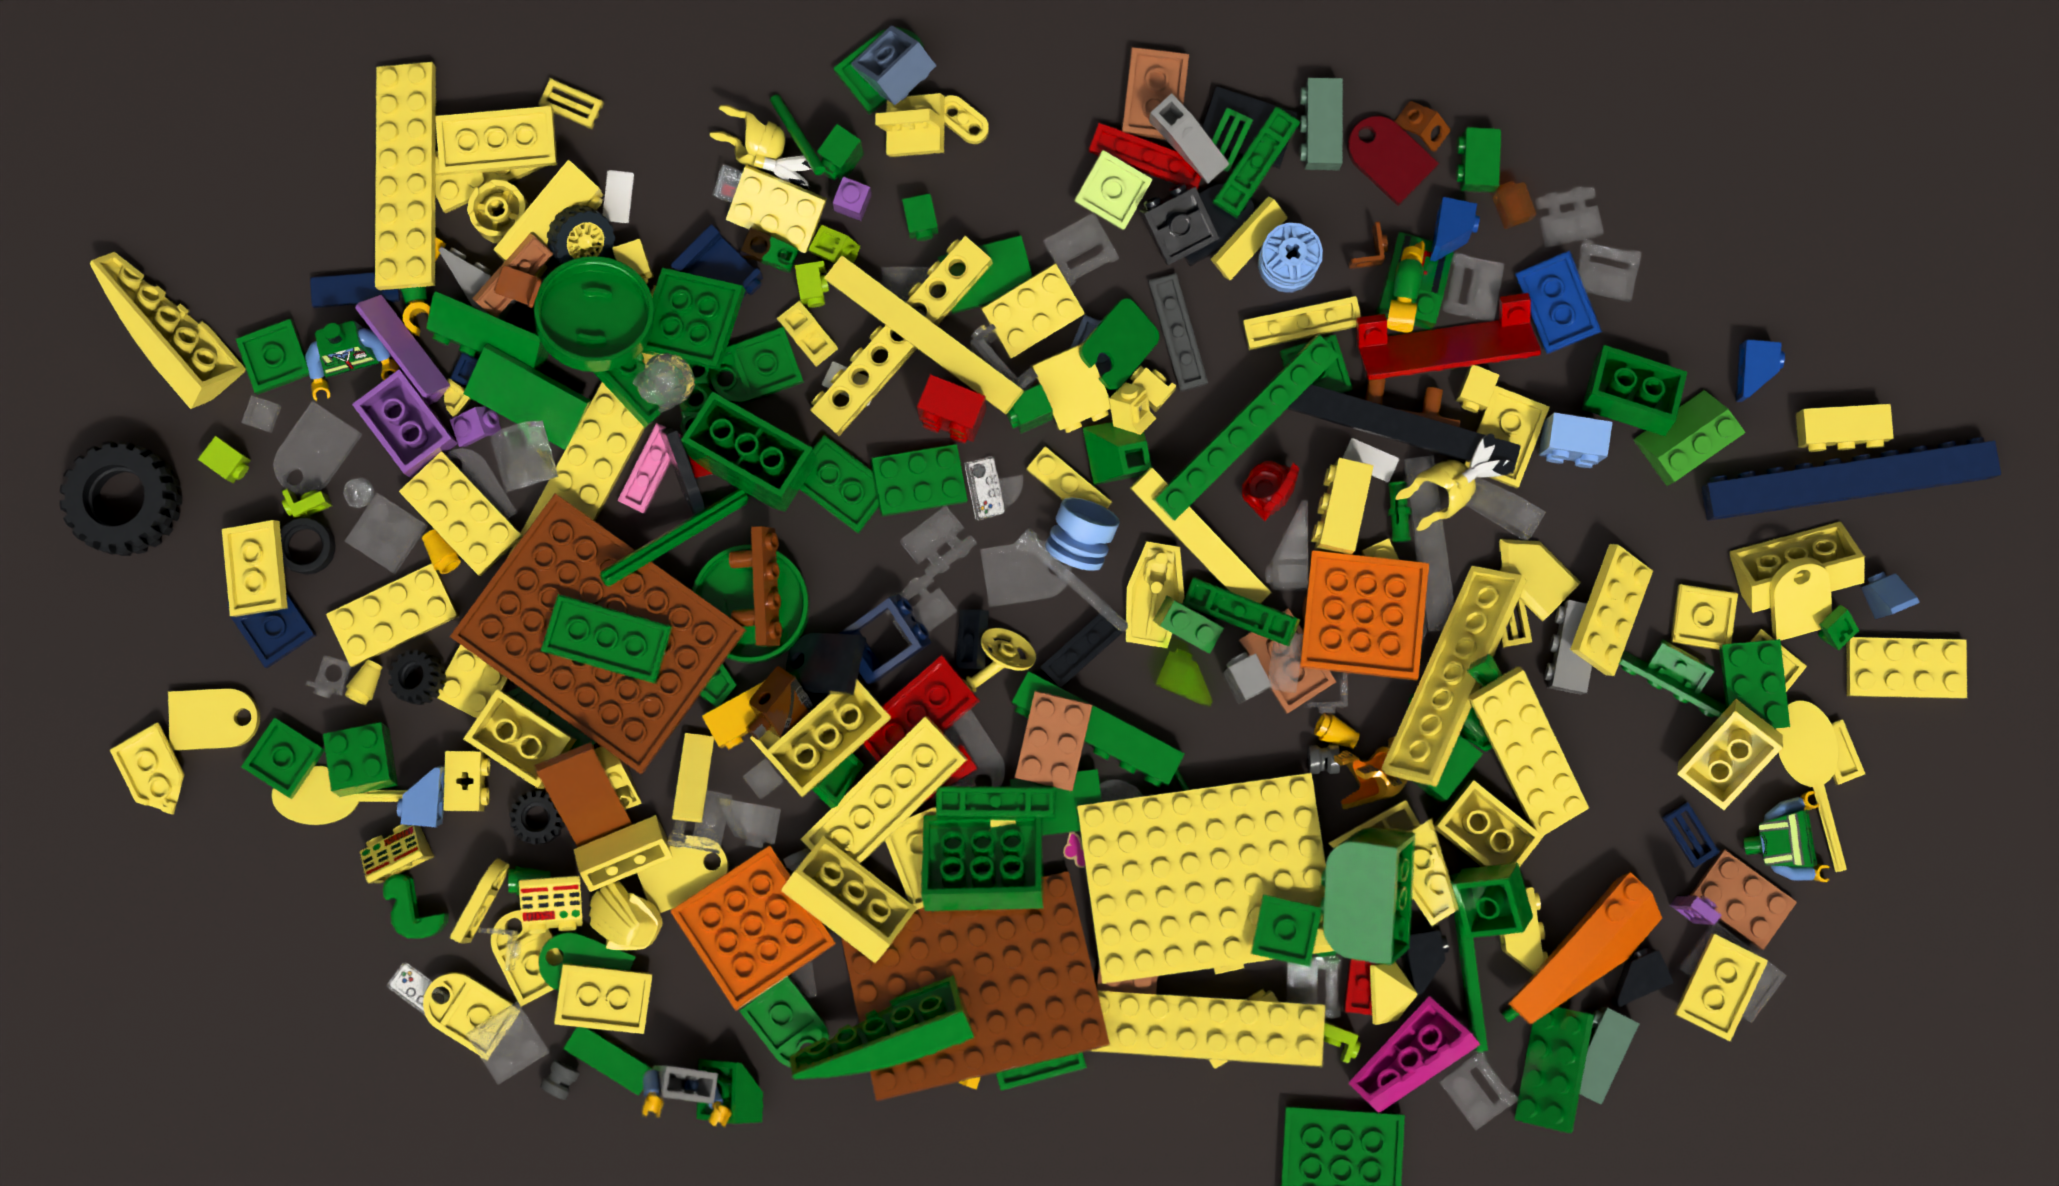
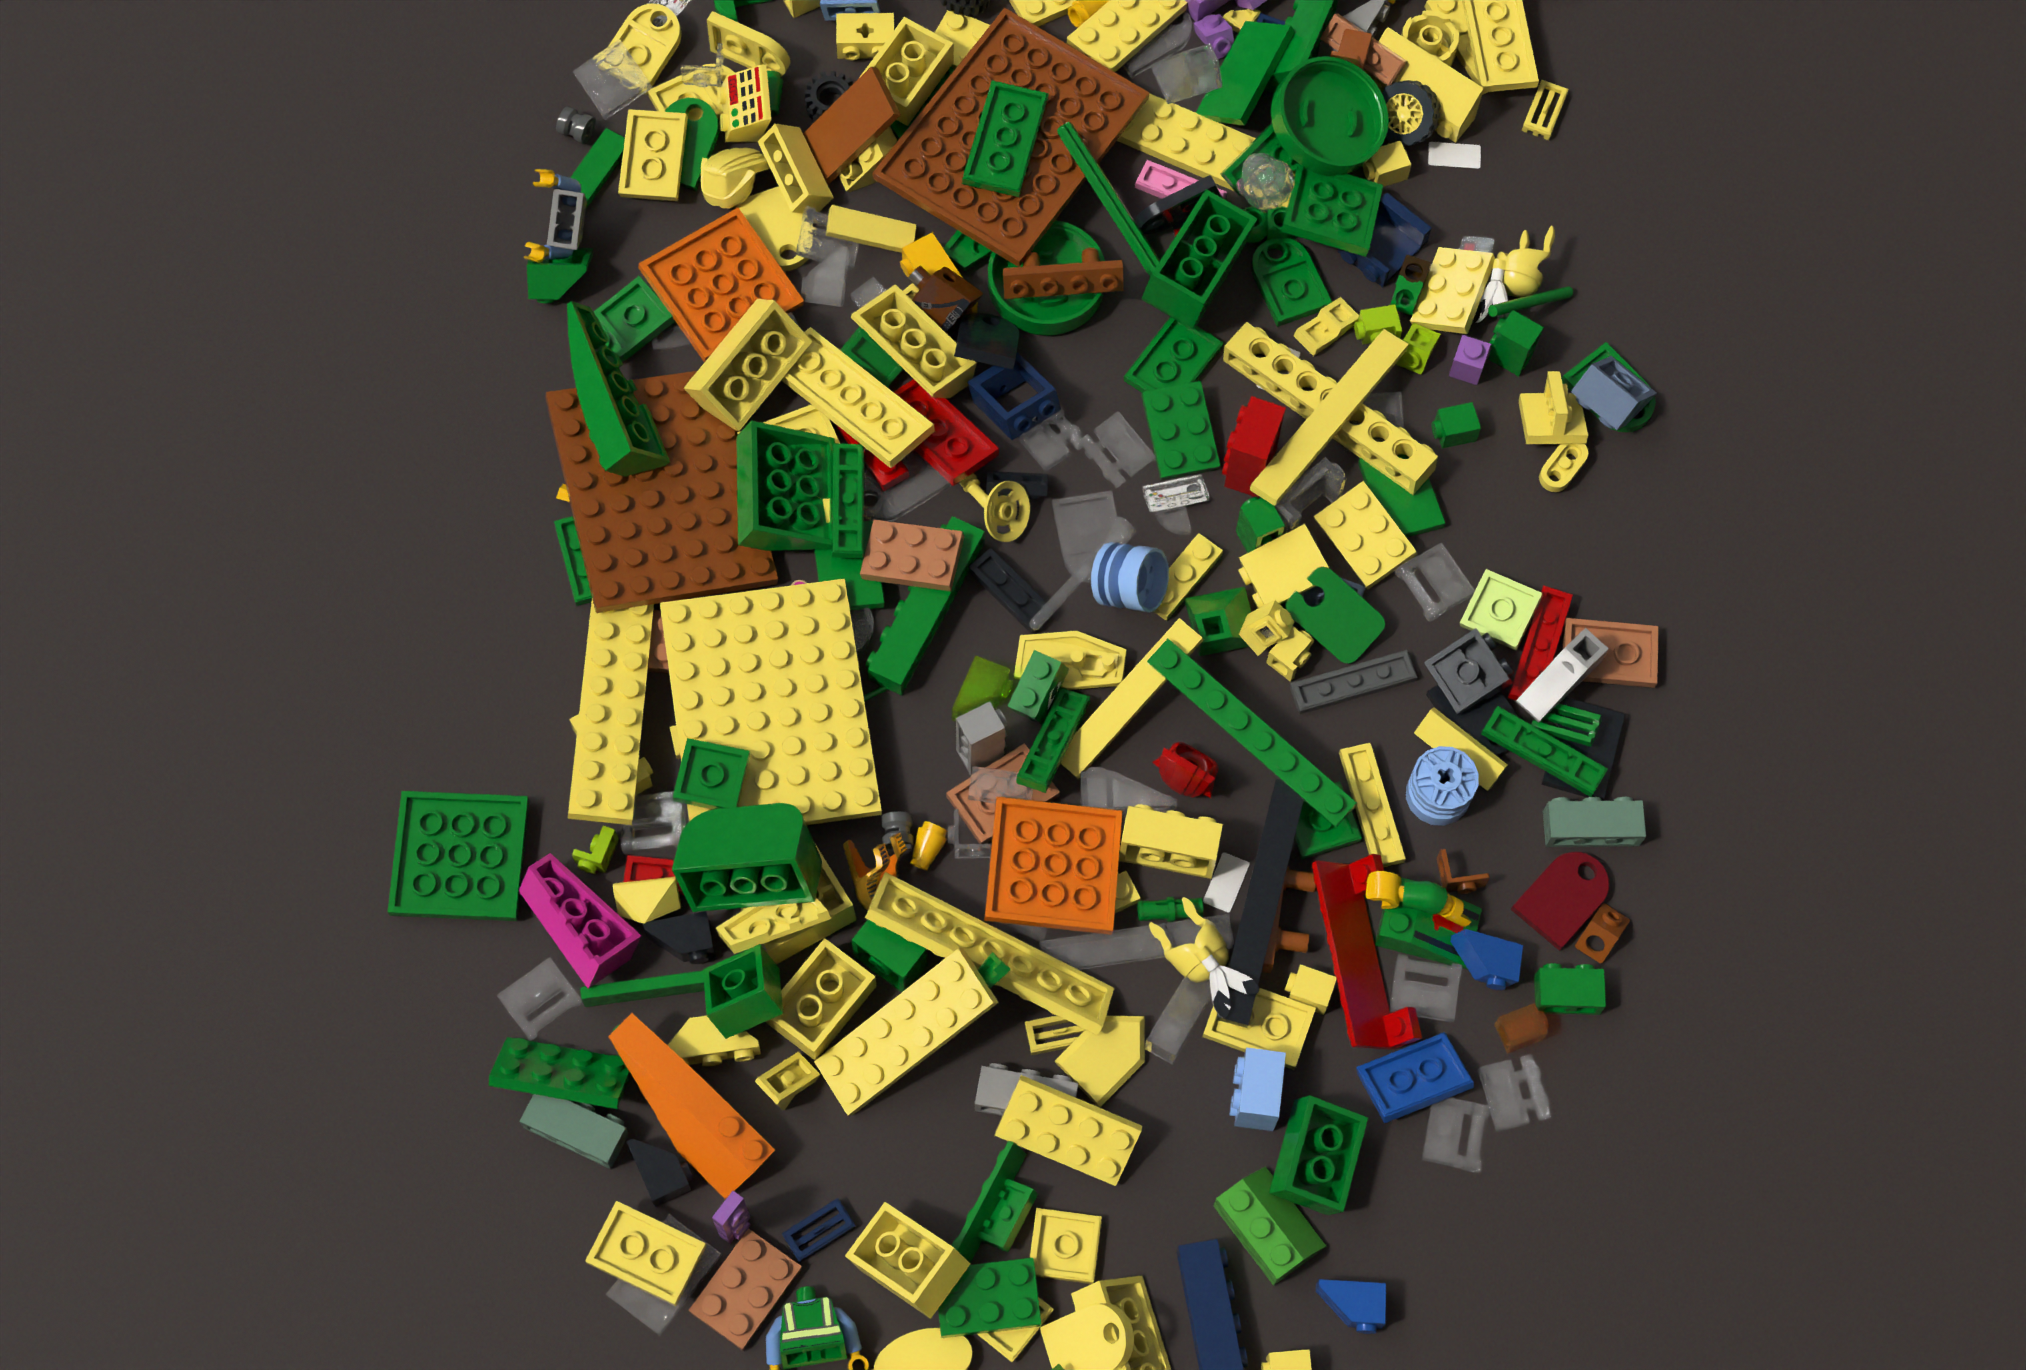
camera: 90 degrees right, 15 degrees down
(1561, 862) = (787, 1079): none -> light yellow slope

